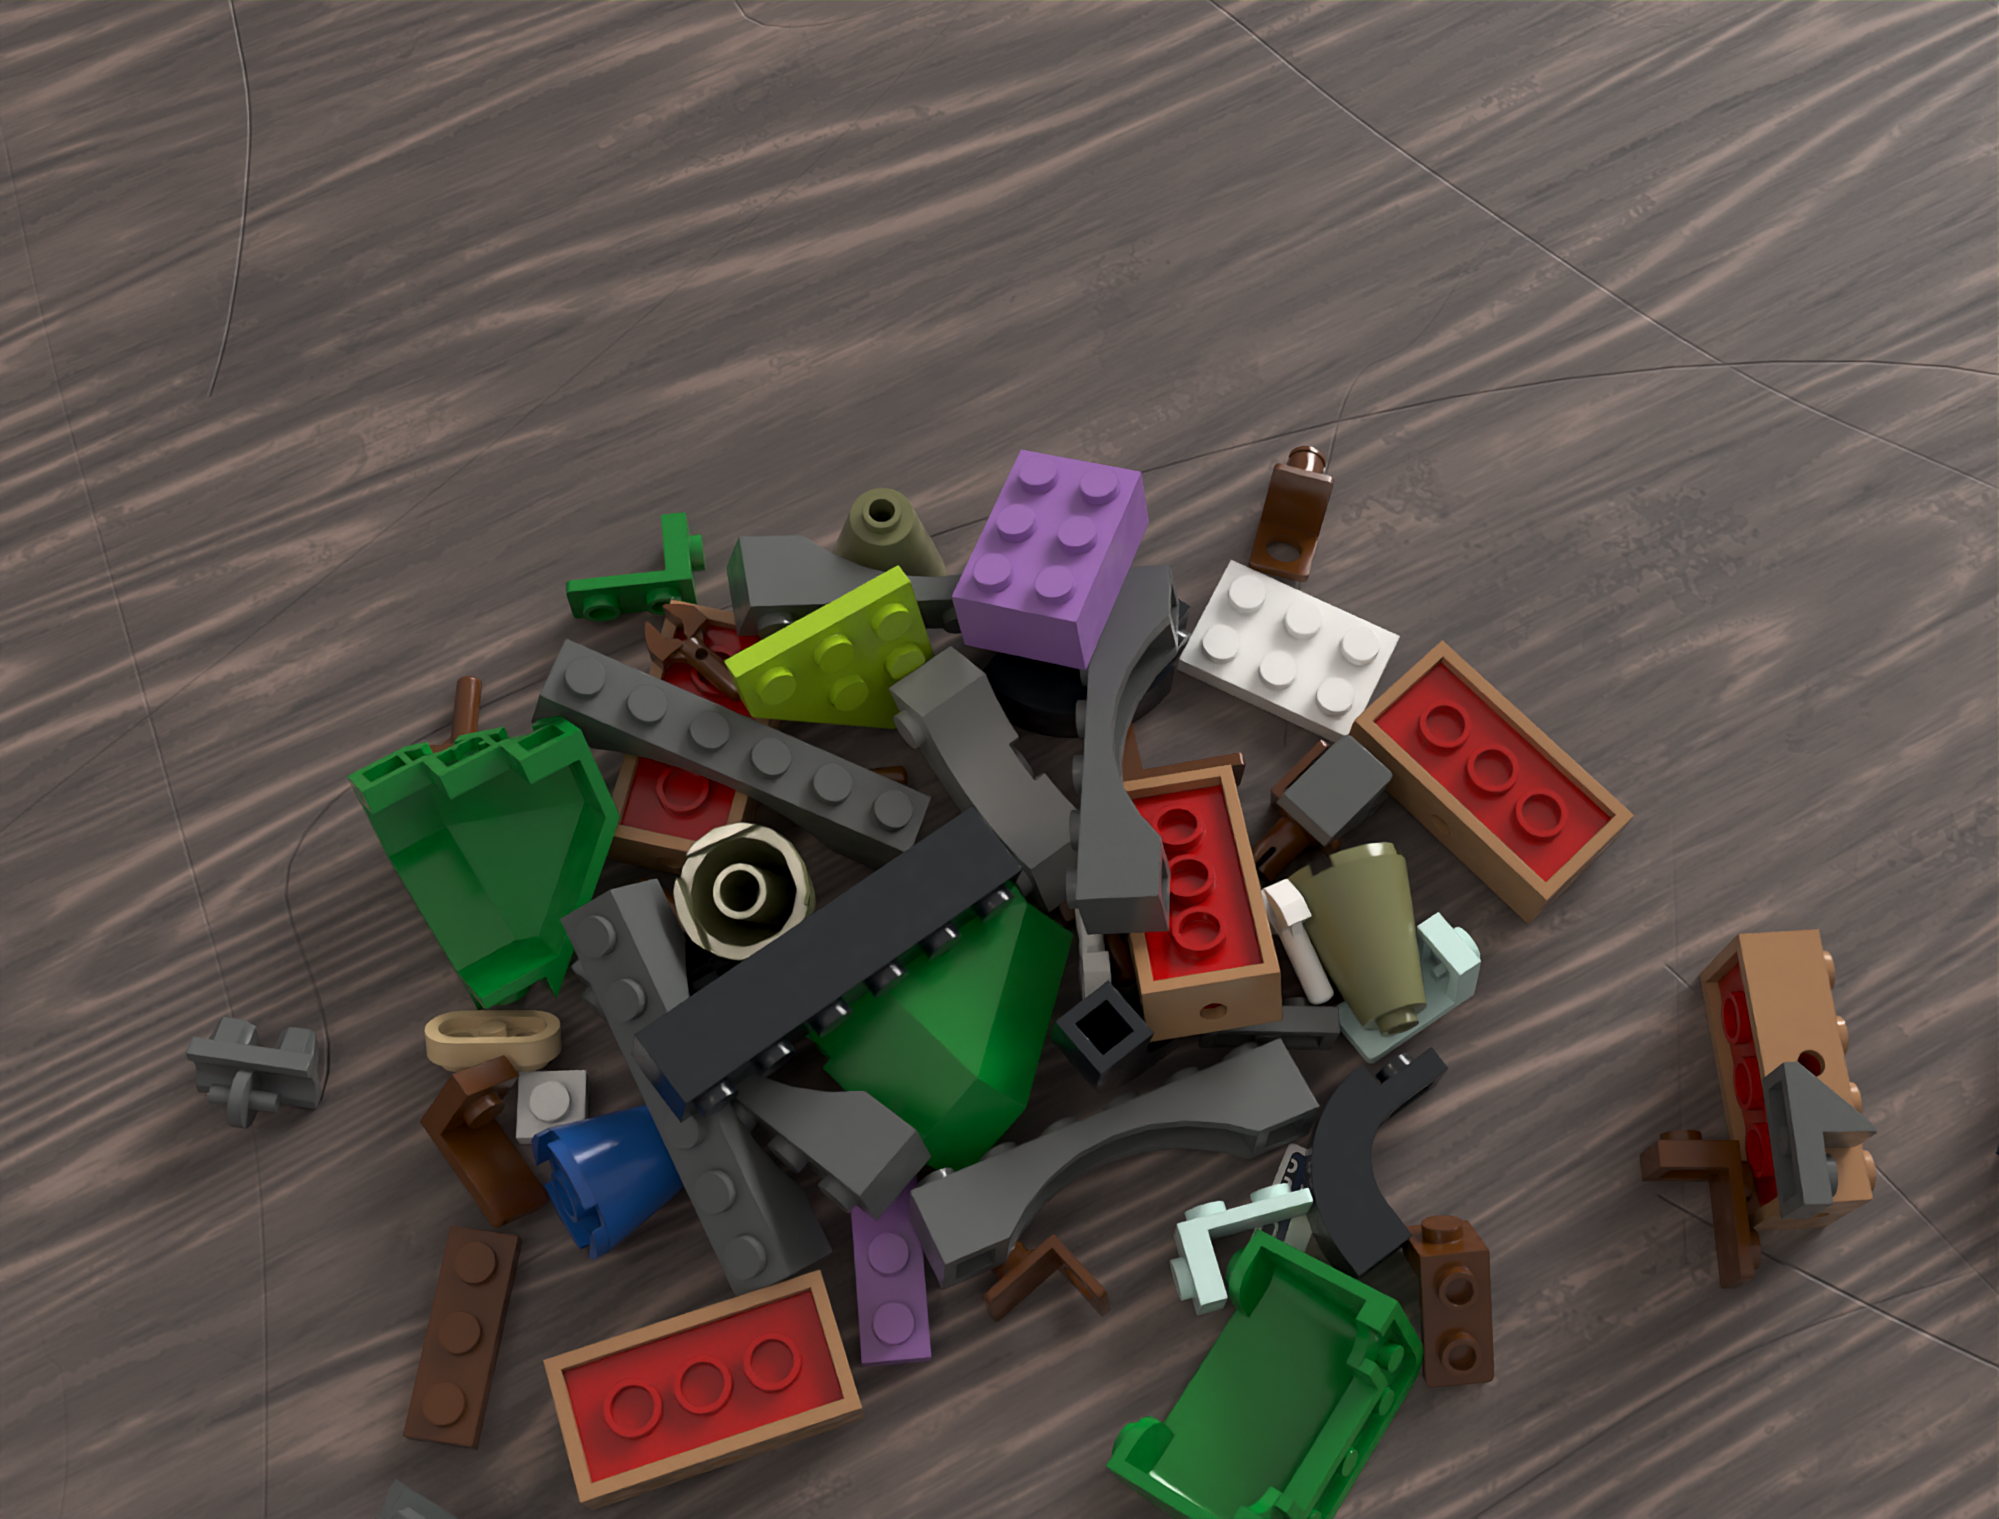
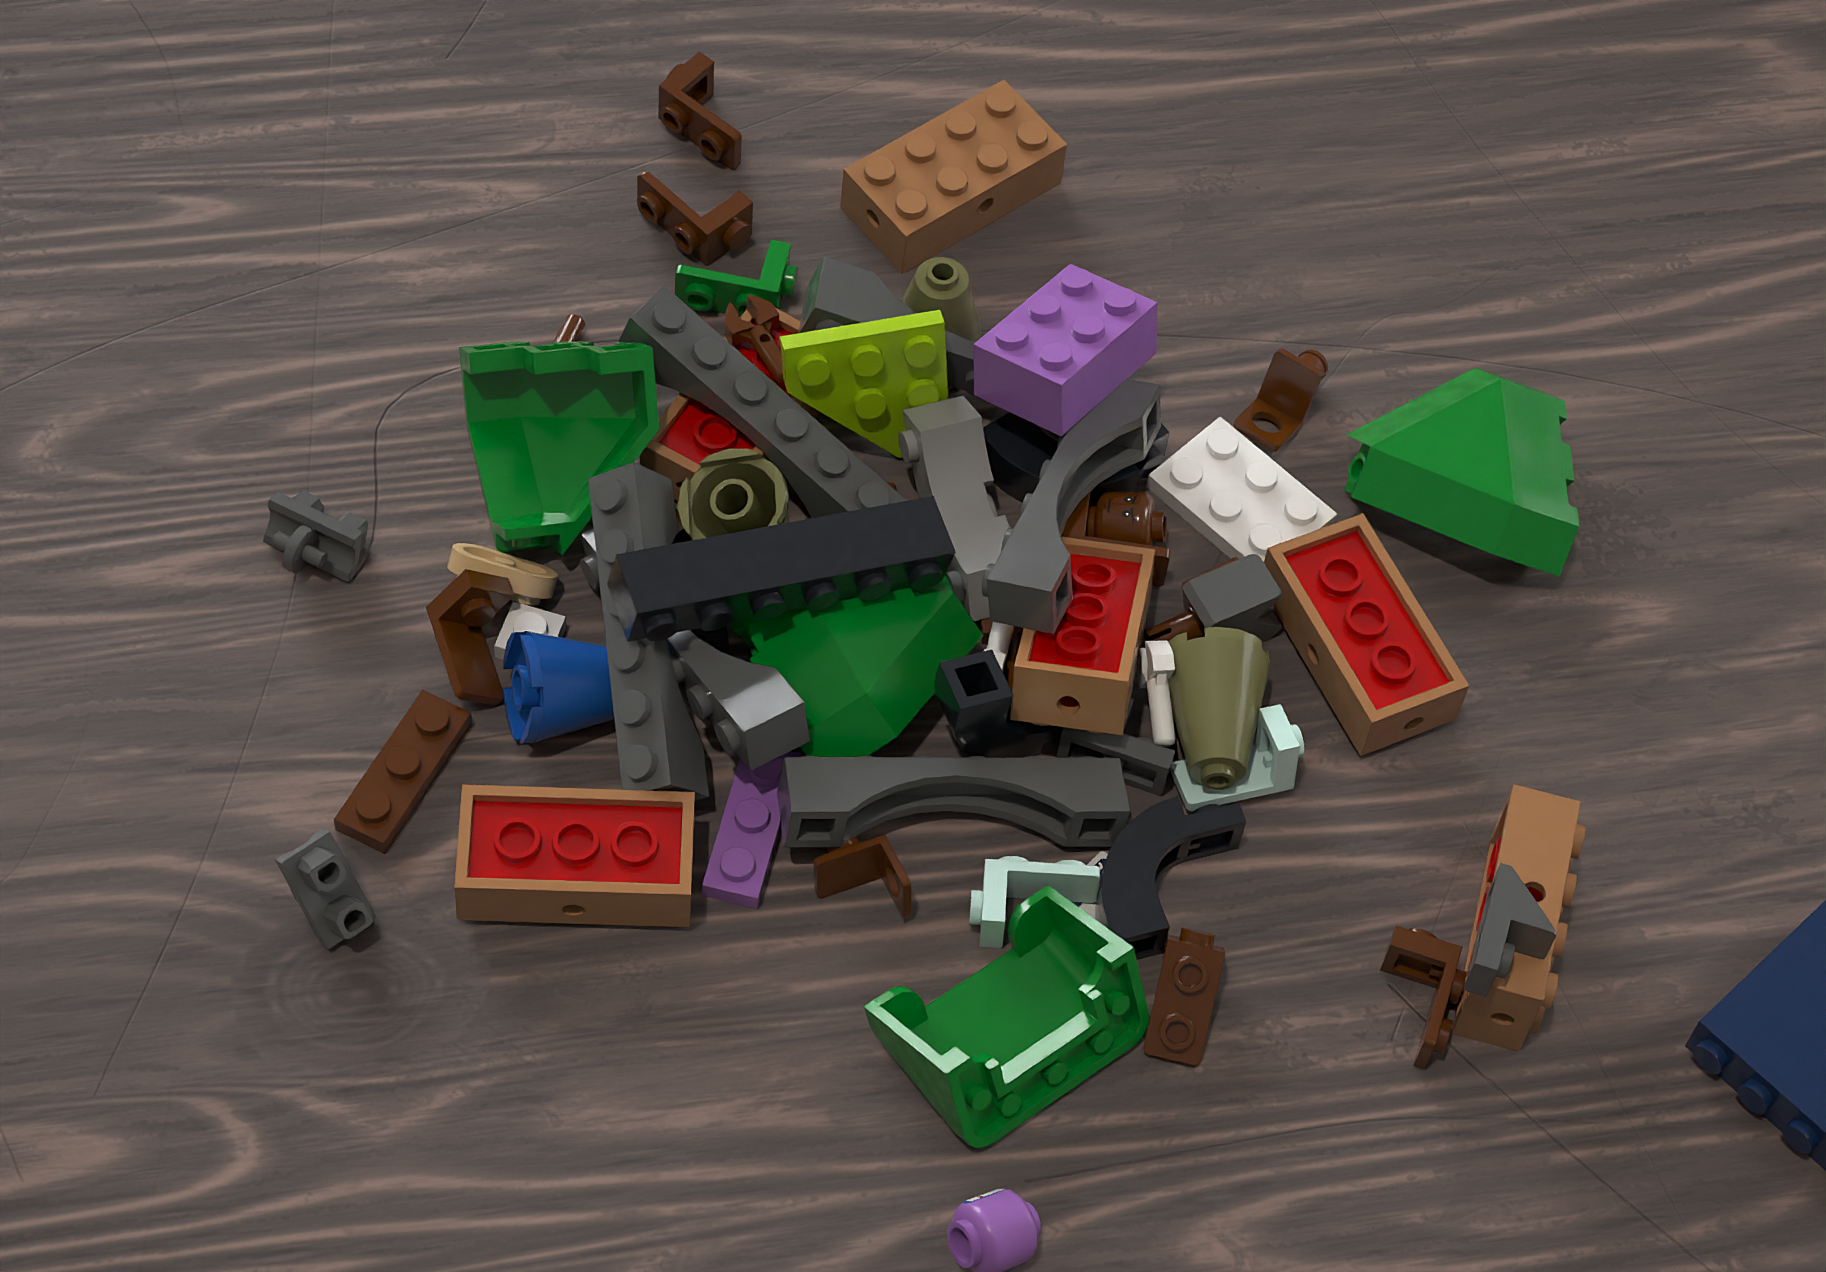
camera: 15 degrees right, 10 degrees down
(493, 364) = (683, 113): none -> reddish brown bracket
(598, 514) = (705, 237): none -> reddish brown bracket
(835, 362) = (952, 176): none -> medium nougat brick
(1178, 729) = (1127, 518): none -> reddish brown head
(1535, 537) = (1475, 465): none -> green panel

